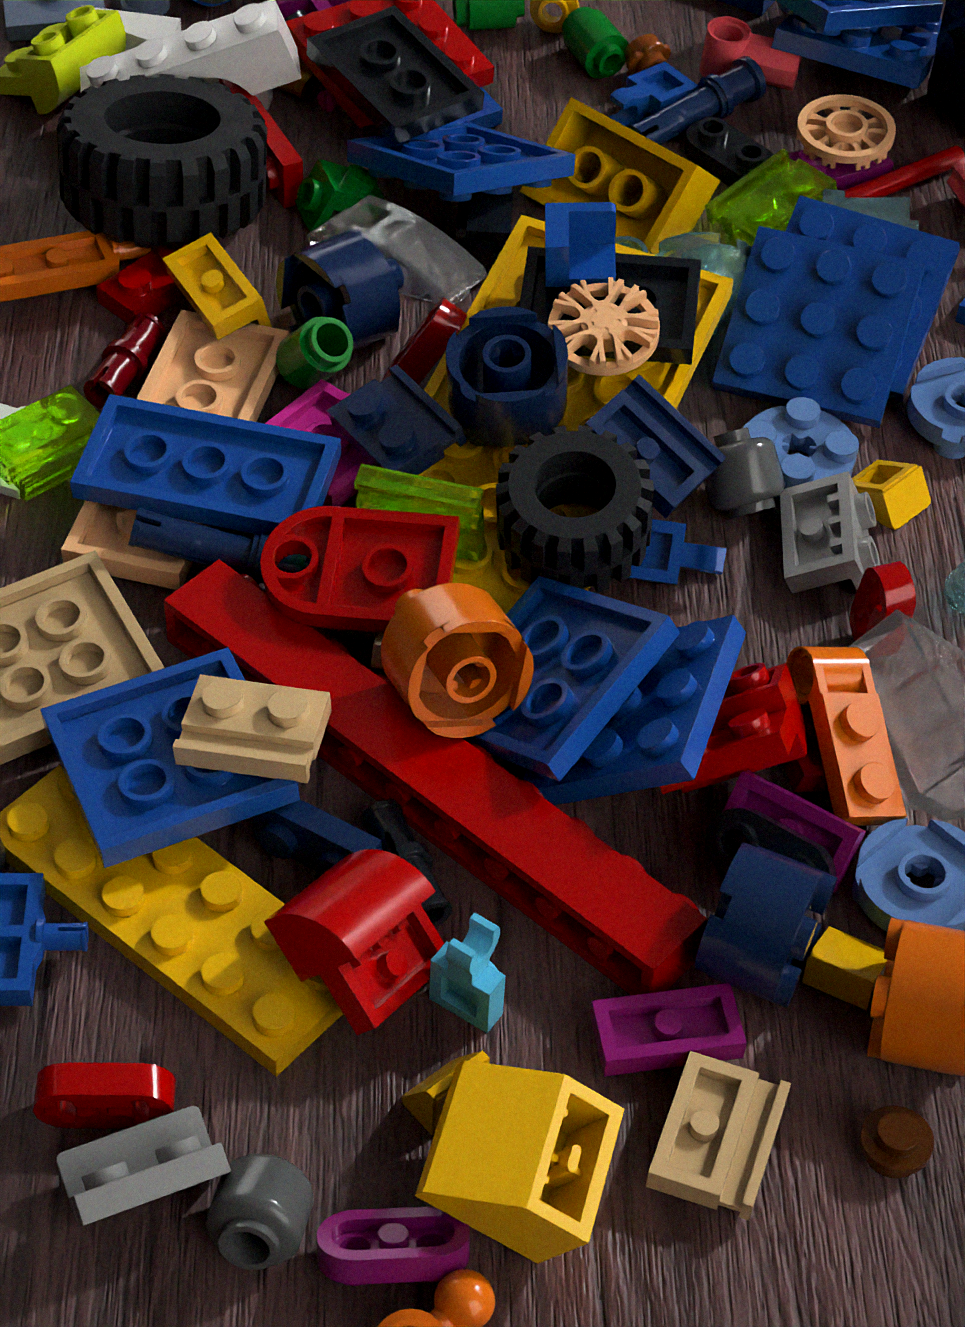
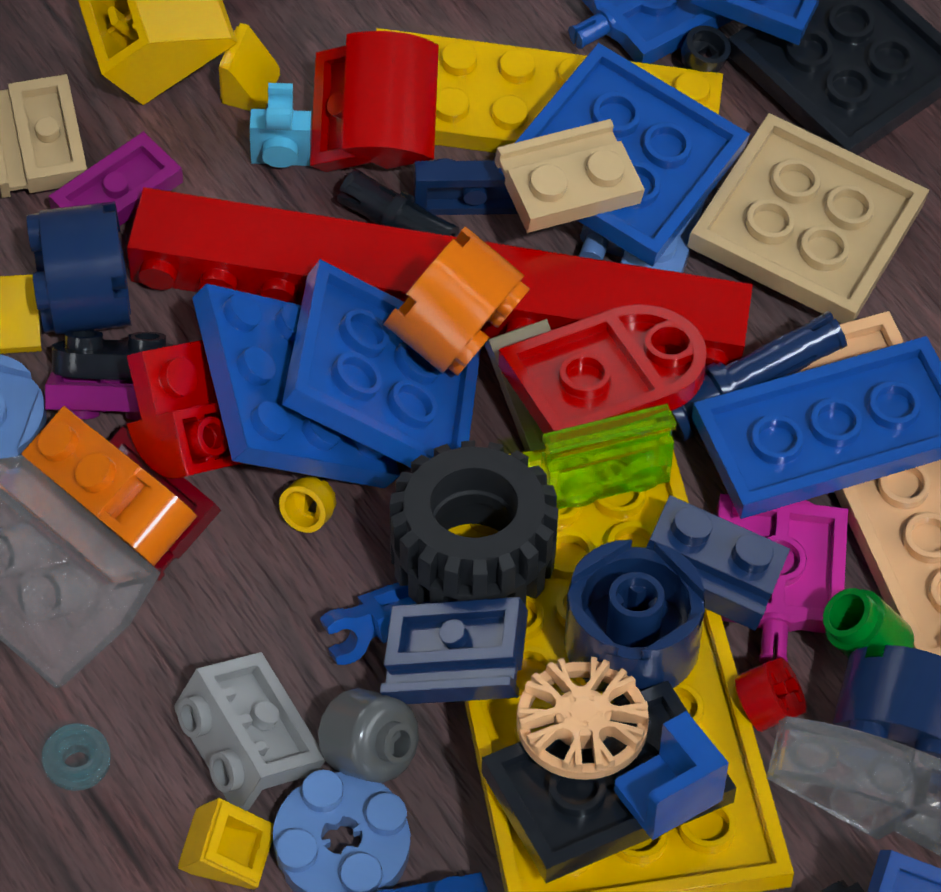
camera: 145 degrees right, 10 degrees up
(880, 594) = (141, 626): red beam -> none

